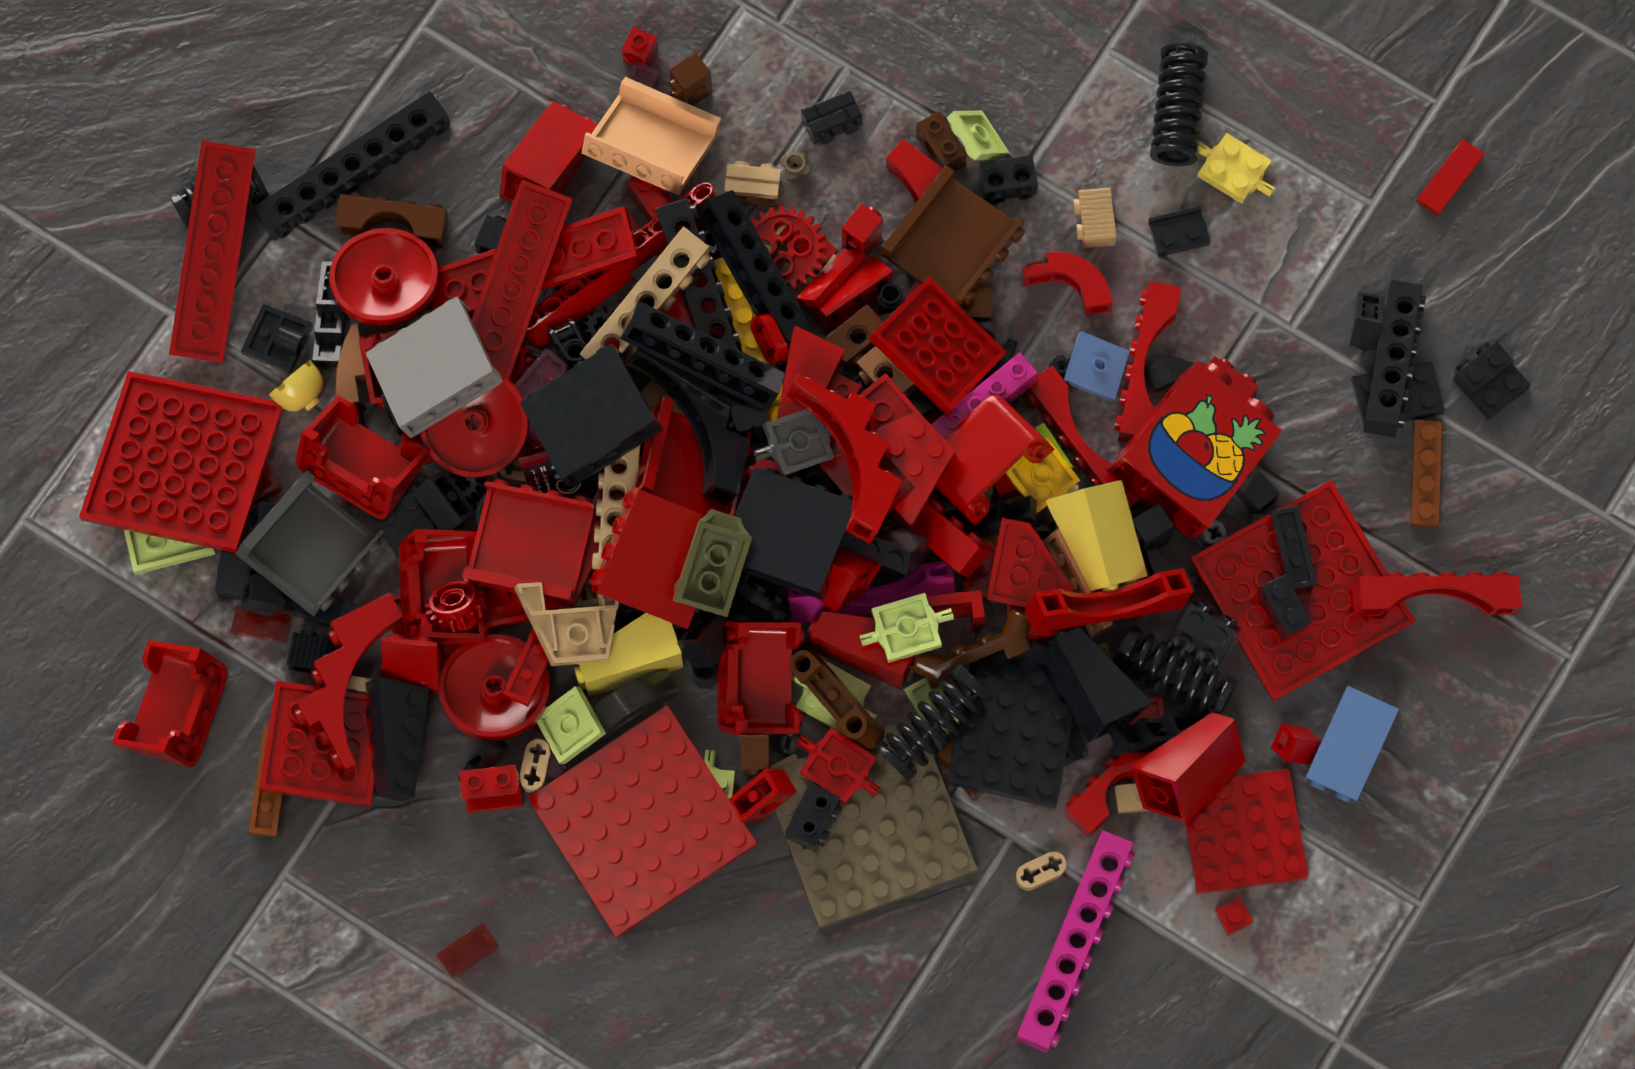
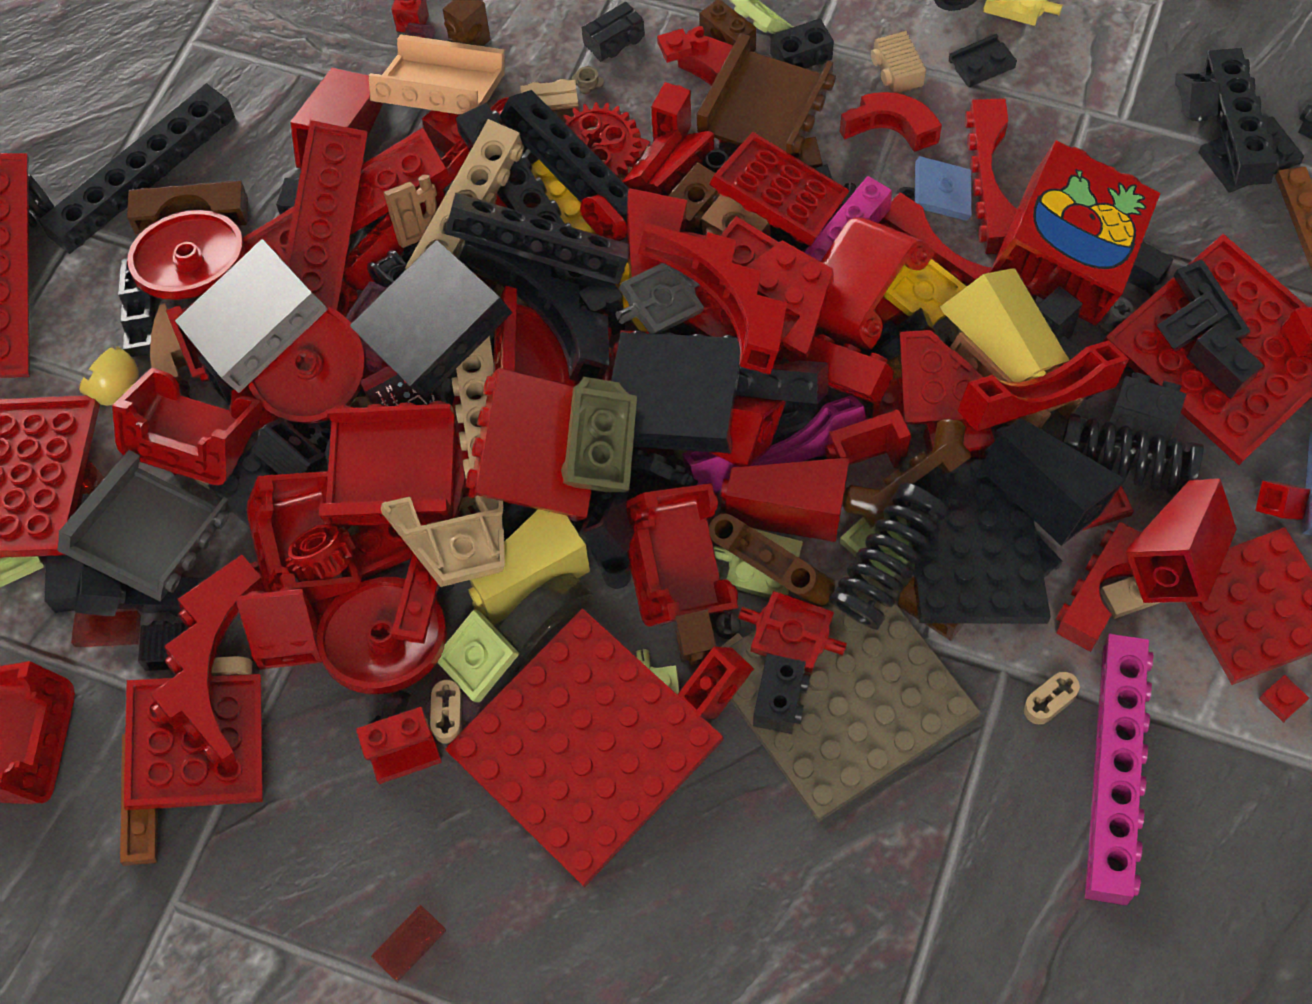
camera: 10 degrees left, 10 degrees down
(277, 338) = (82, 338): black plate -> none
(396, 736) = (278, 708): black wedge -> none
(592, 291) = (406, 212): none -> medium nougat plate
(886, 154) = (679, 45): none -> red plate
(906, 627) = (831, 461): yellowish green plate -> none
(1150, 733) = (1128, 518): black slope -> none
(1166, 371) = (1015, 178): black slope -> none
(1267, 564) = (1192, 321): none -> black plate

